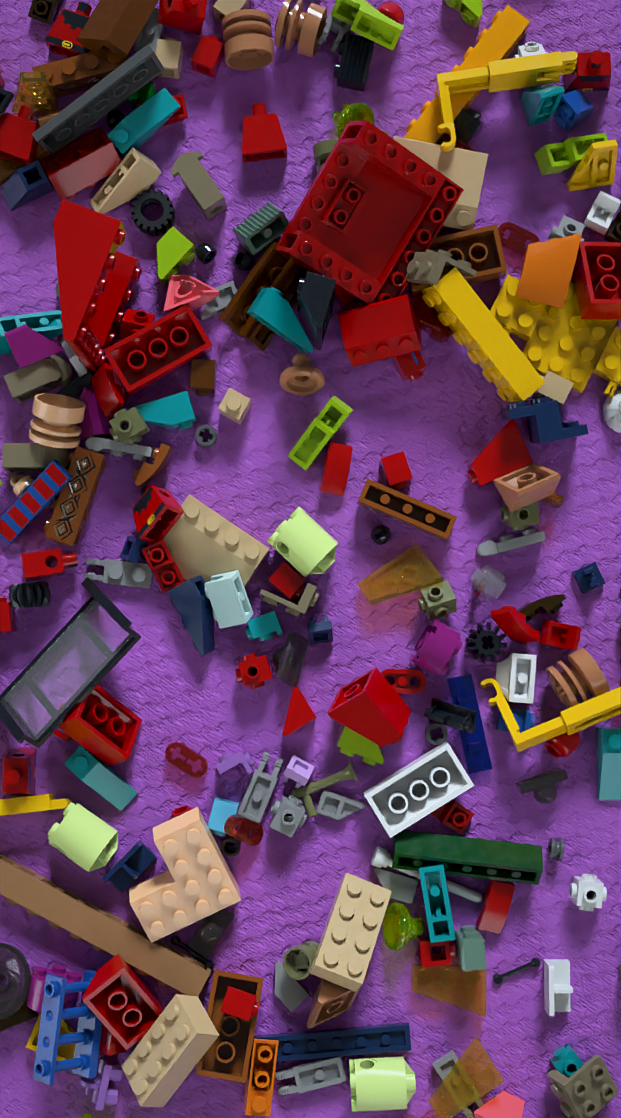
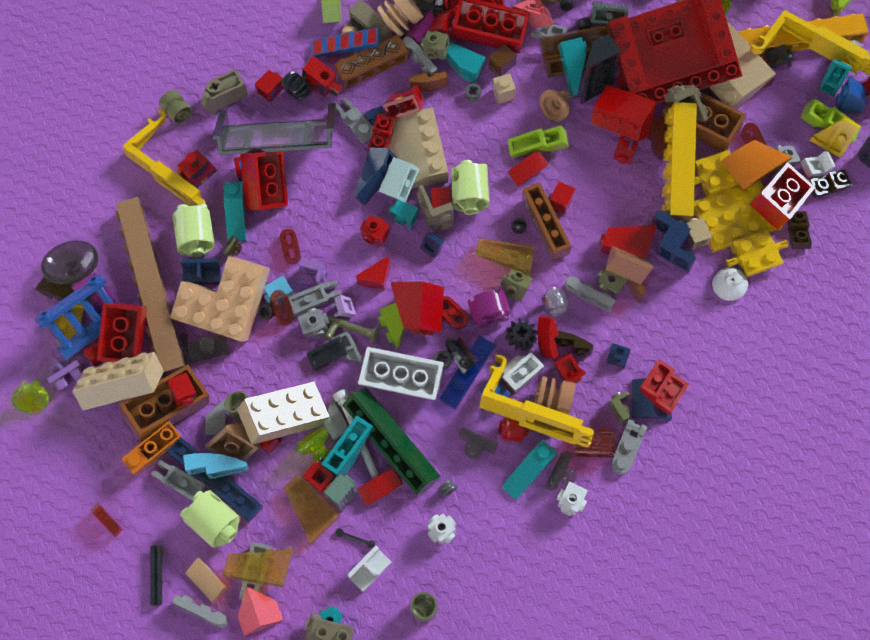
camera: 50 degrees right, 15 degrees down
(137, 818) = (233, 246): none -> dark brown slope
(290, 659) = (401, 242): clear smoke tile -> none
(327, 830) = (327, 353): none -> black tile
(333, 1036) = (213, 464): none -> medium azure slope
(453, 815) = (406, 409): red slope -> none

